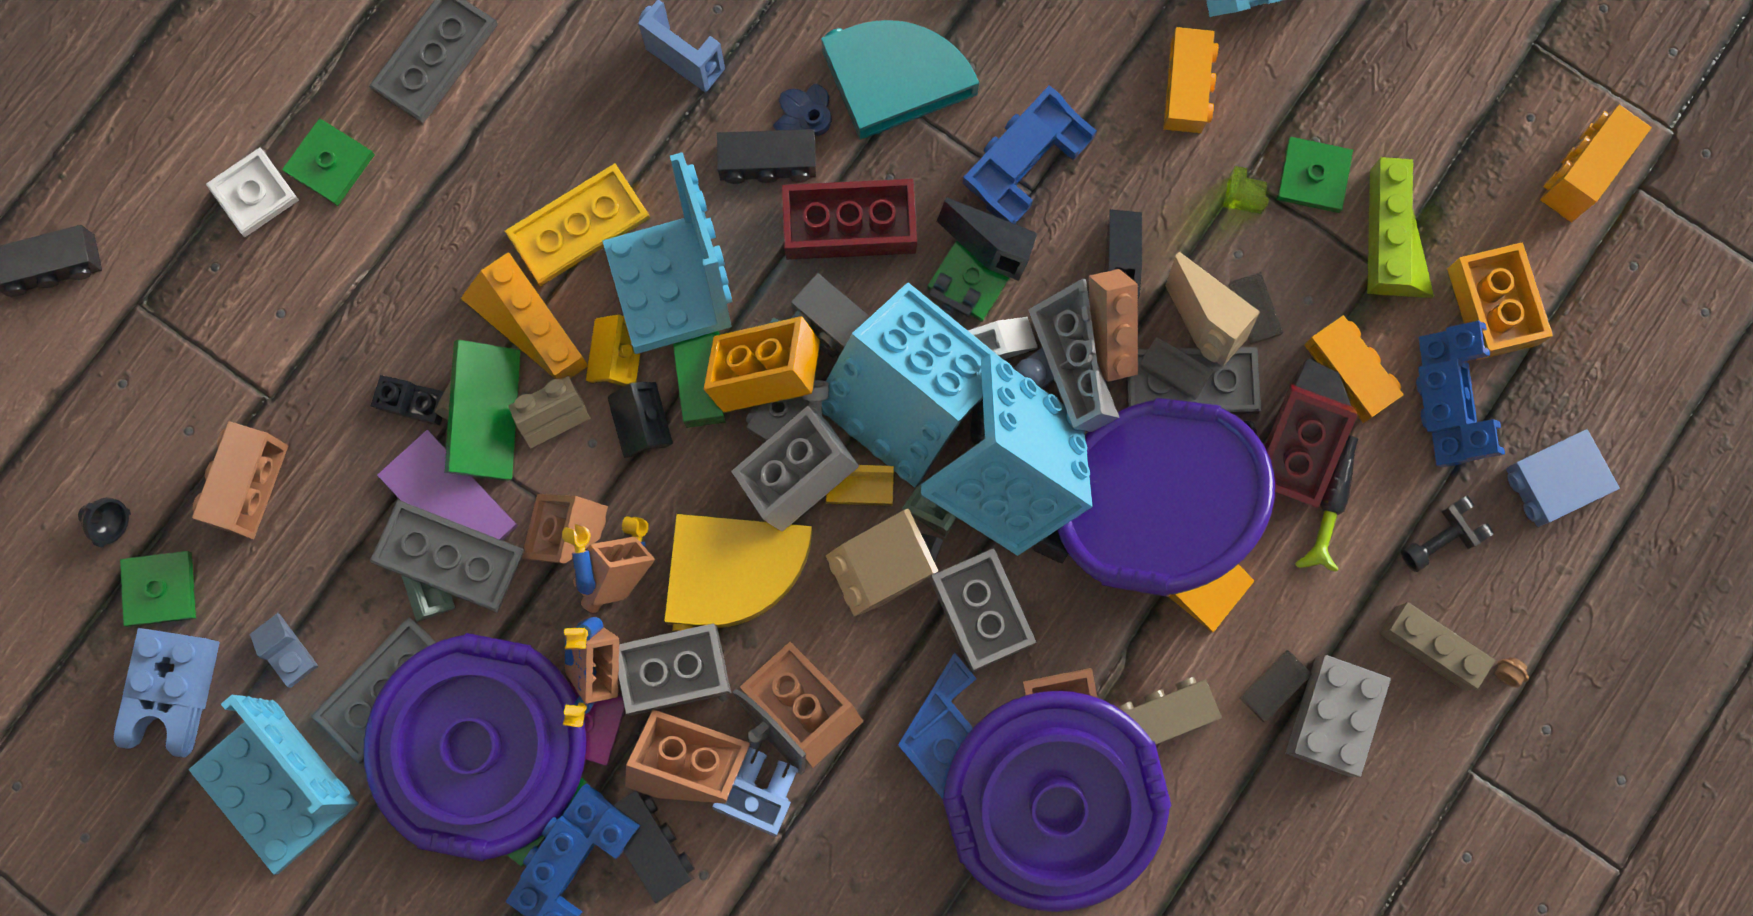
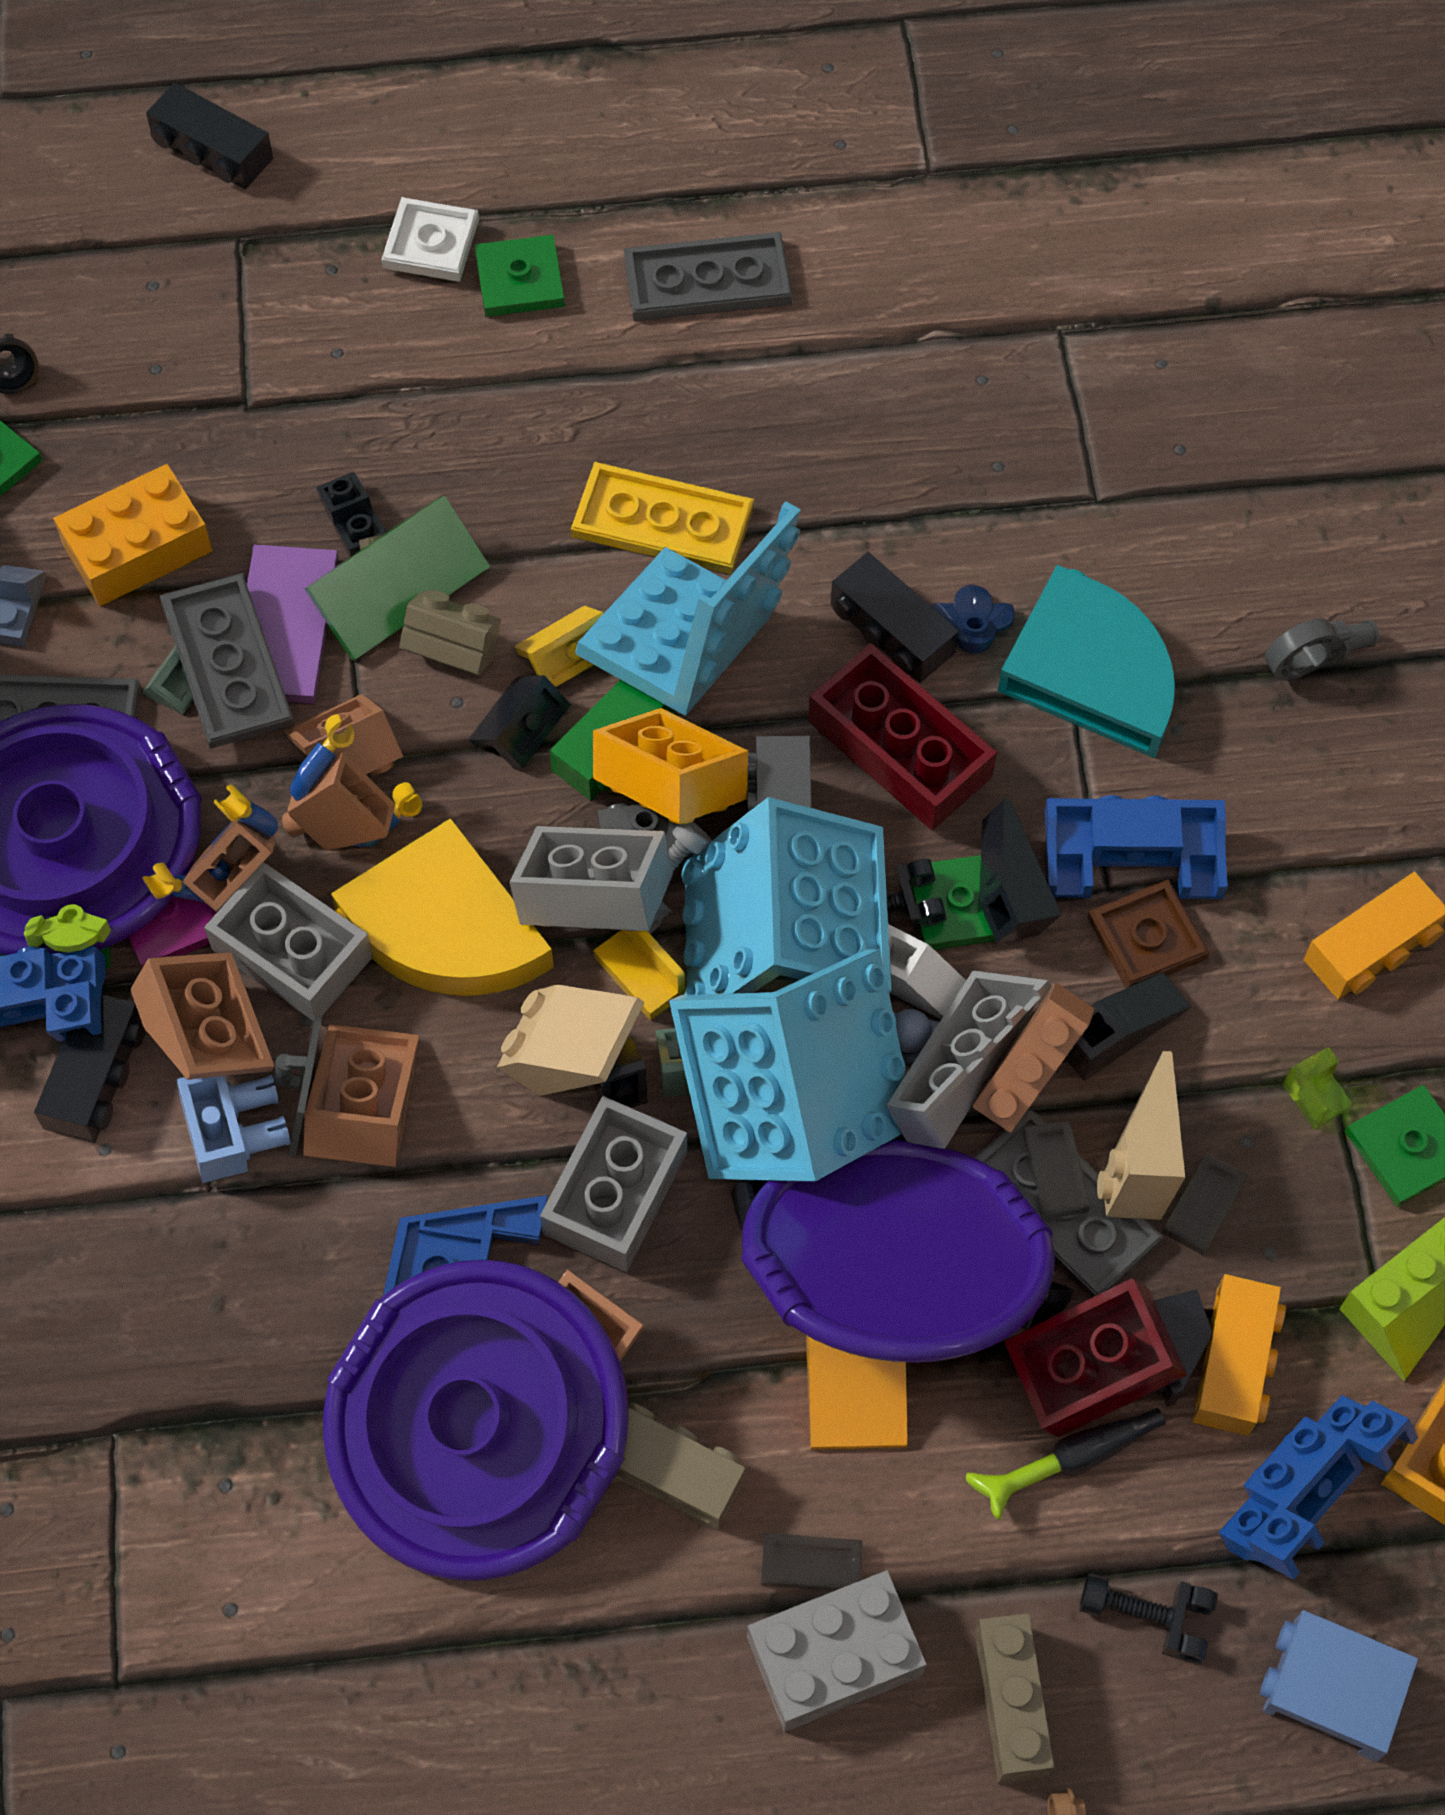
camera: 50 degrees right, 15 degrees down
(239, 480) = (143, 432): nougat brick -> none
(304, 541) = (133, 534): none -> light orange brick
(517, 311) = (526, 536): light orange wedge -> none
(558, 795) = (68, 931): none -> lime piece
(698, 66) = (923, 483): medium blue panel -> none
(1079, 196) = (1148, 934): none -> reddish brown tile

